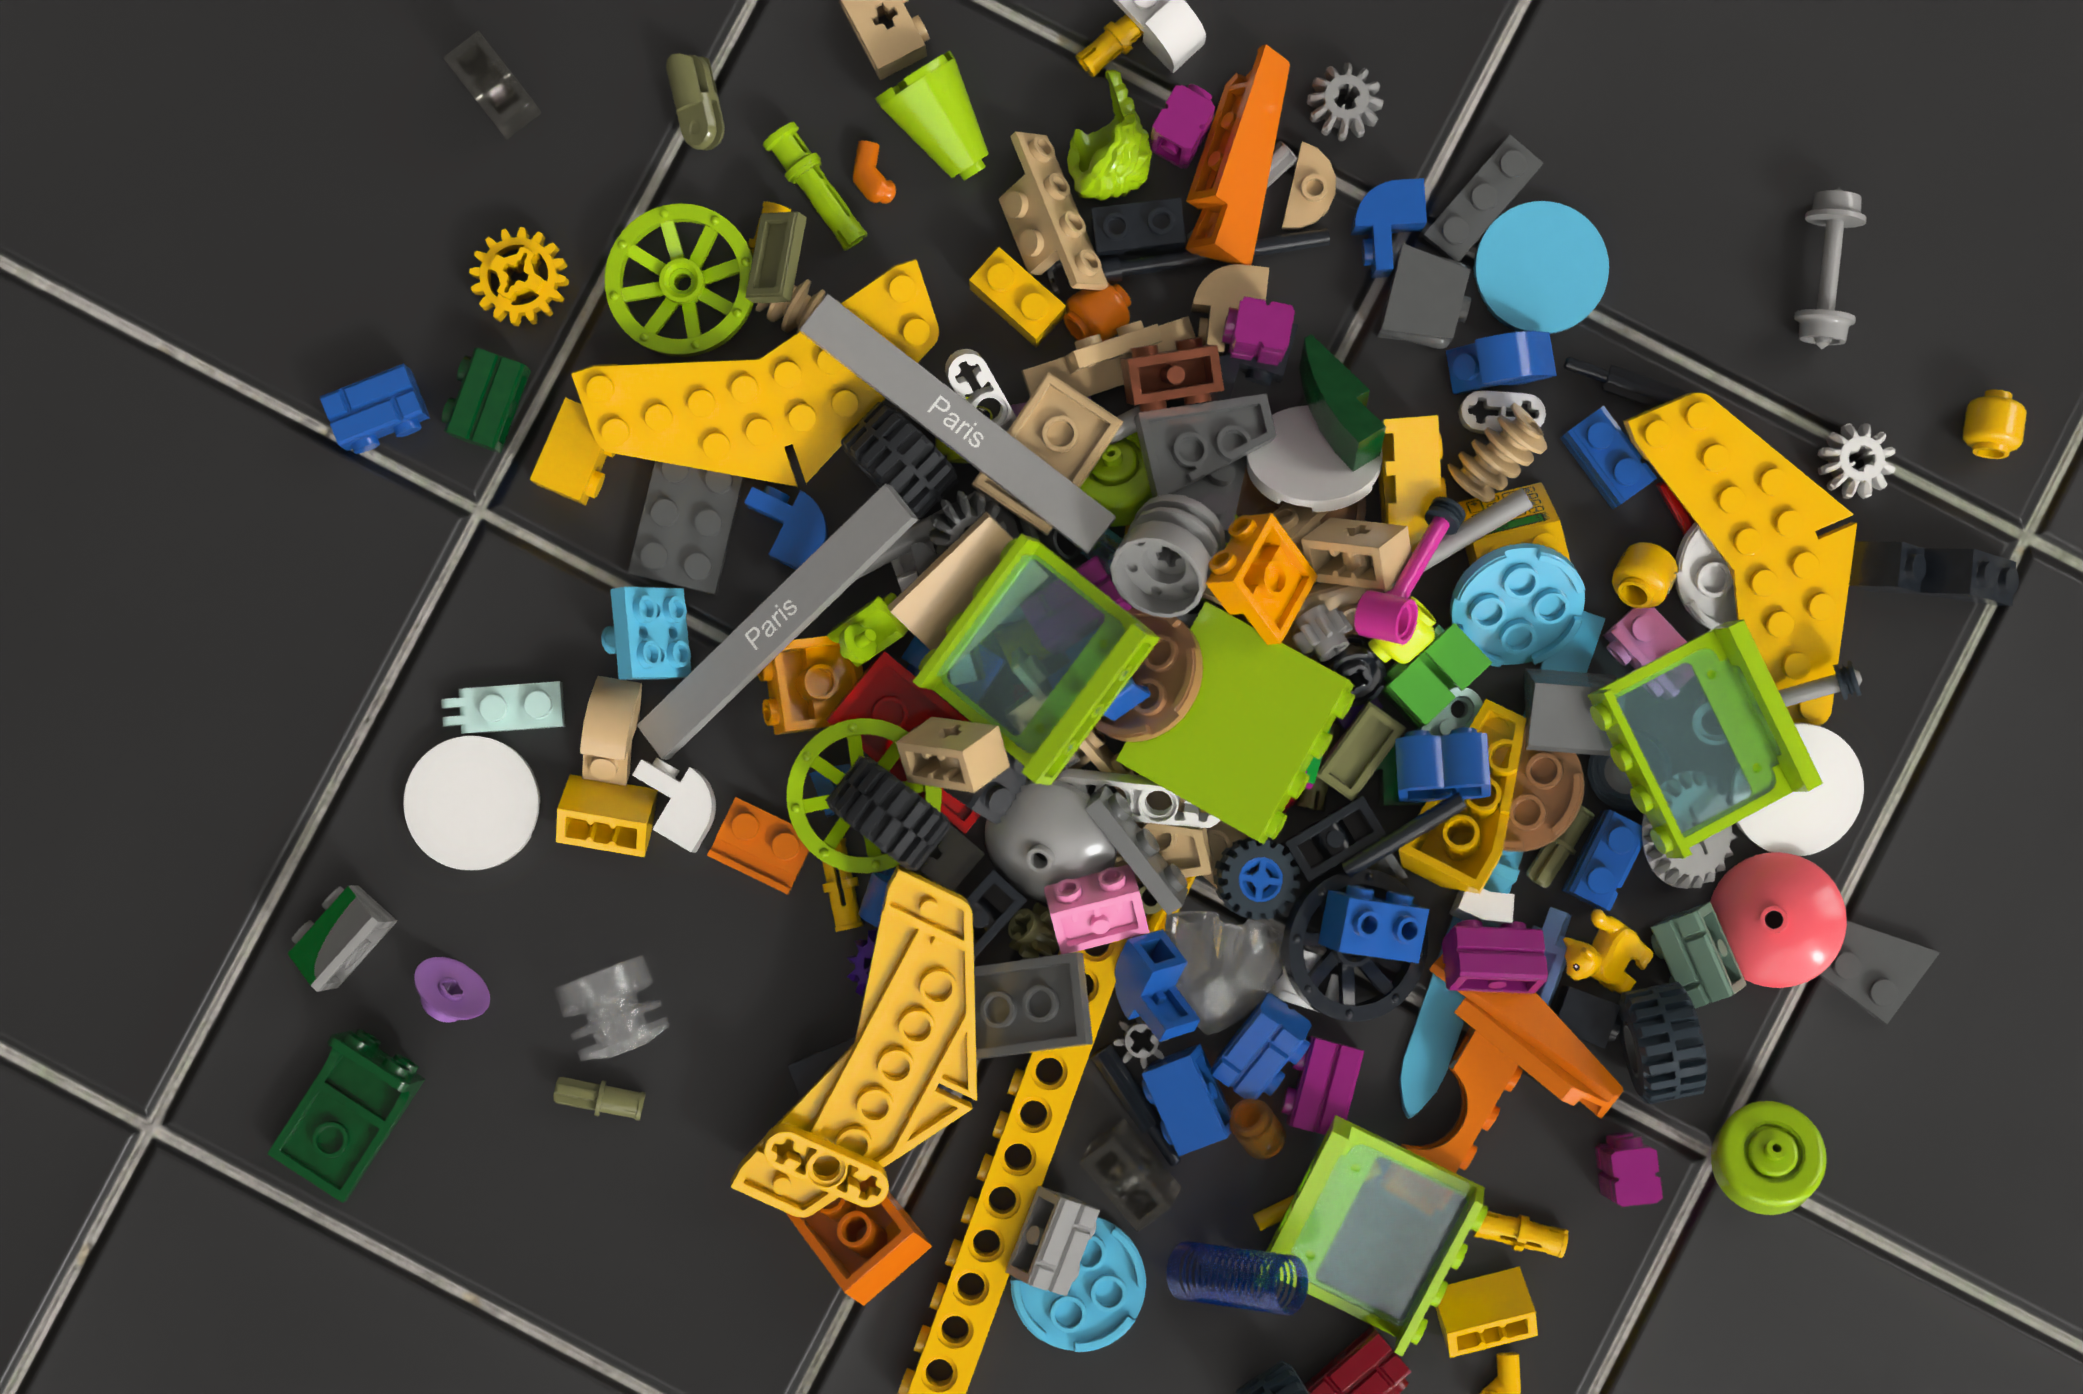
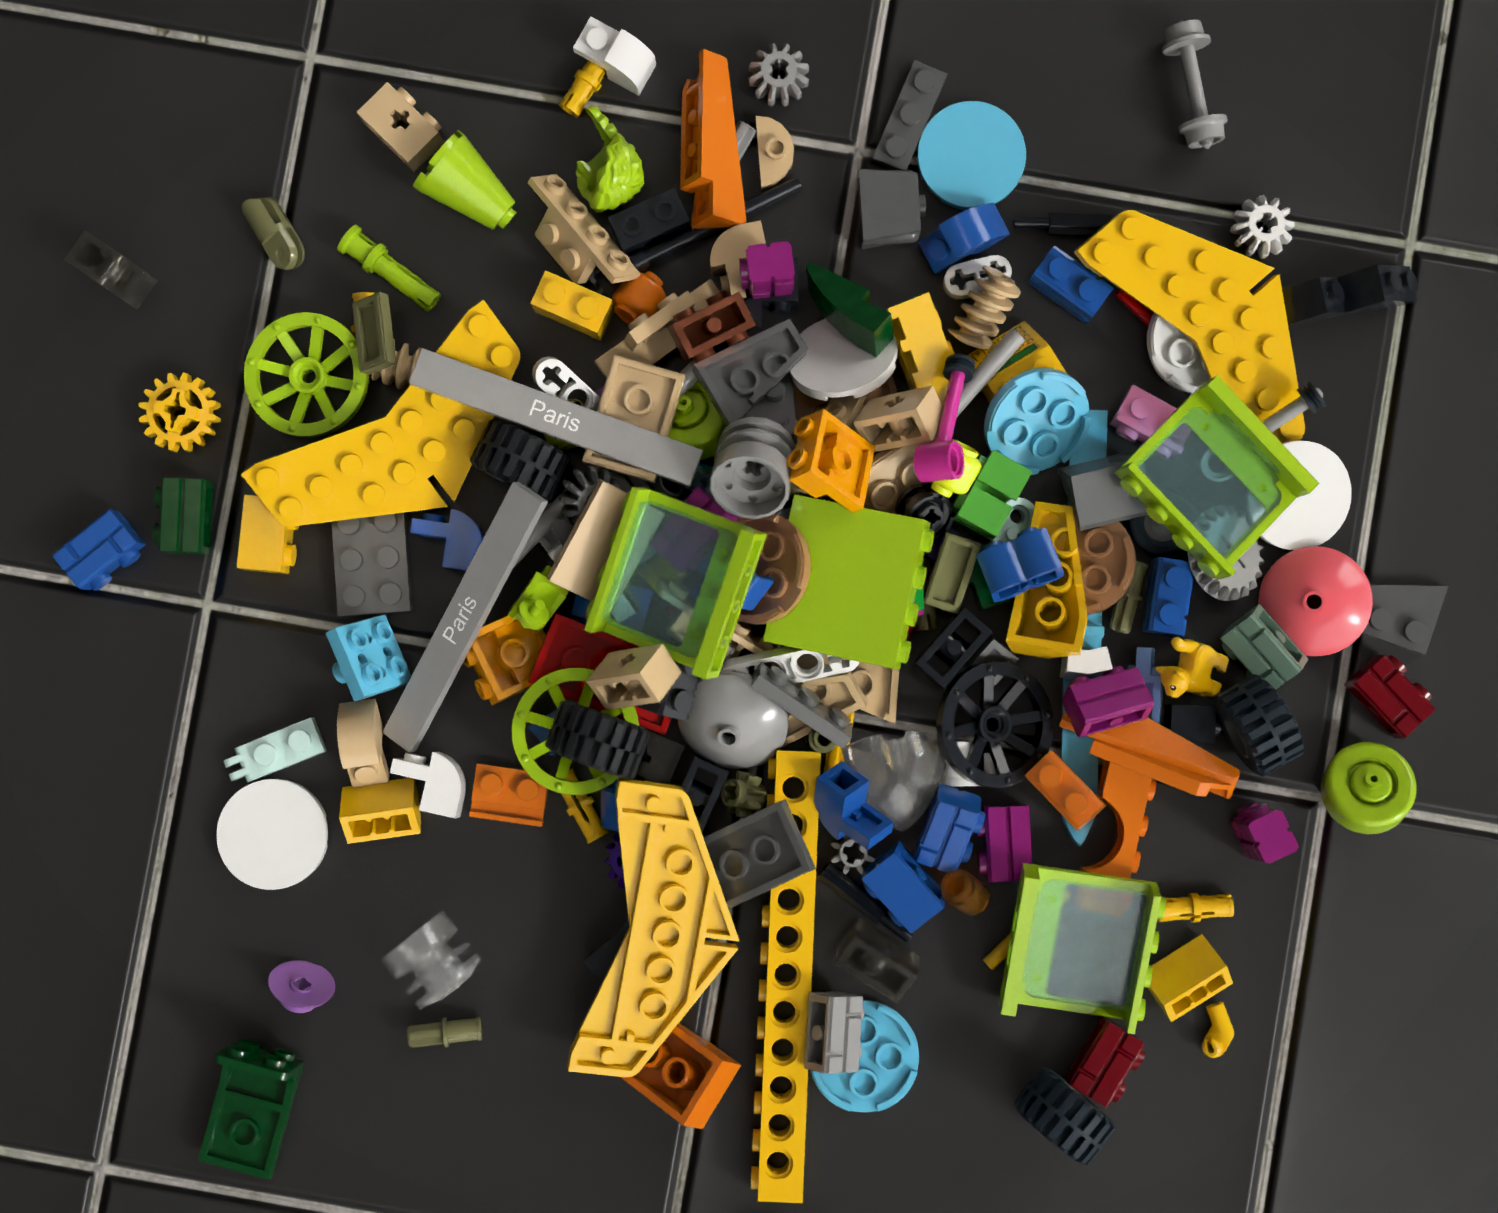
camera: 15 degrees left, 0 degrees up
(340, 938) = (202, 973): light grey slope -> none
(791, 1161) = (609, 1038): yellow beam -> none
(868, 177) = (428, 250): orange arm -> none
(1096, 909) = (785, 762): bright pink bracket -> none
(1182, 125) = (658, 131): magenta brick -> none
(1268, 1280) = (1012, 1008): clear blue piece -> none
(1272, 882) = (916, 697): black wheel -> none
(1322, 632) = (892, 490): light grey gear -> none
(1373, 925) = (1005, 705): blue brick -> none
(1385, 210) = (838, 147): blue brick -> none
(1404, 834) = (1006, 627): black bar -> none
(1412, 1047) = (1065, 790): none -> orange brick
(1644, 575) = (1127, 367): yellow head -> none
(1830, 1058) = (1390, 695): none -> dark red brick
(1994, 424) = (1359, 165): yellow head -> none

